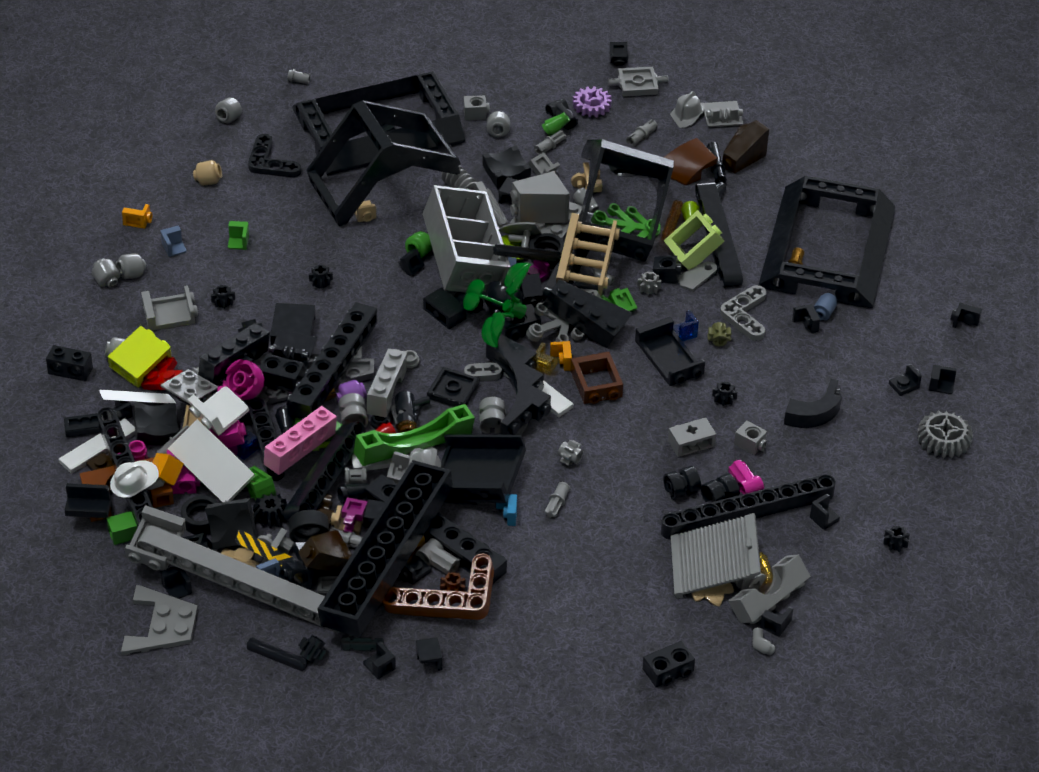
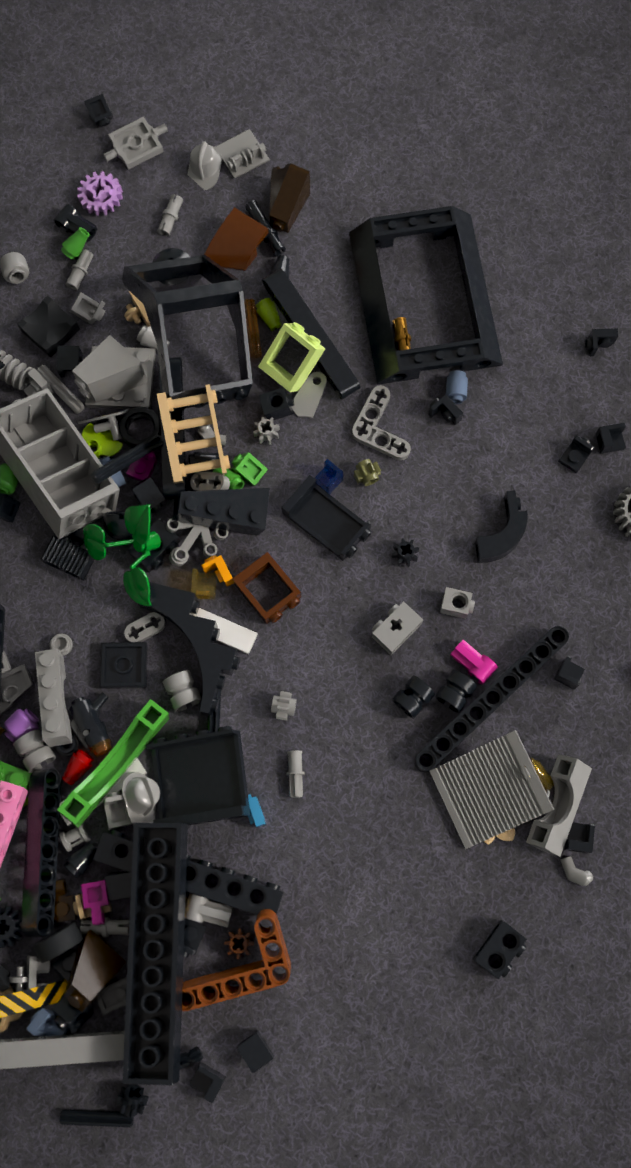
camera: 20 degrees left, 30 degrees up
(626, 222) = (211, 358): bright green plant -> none

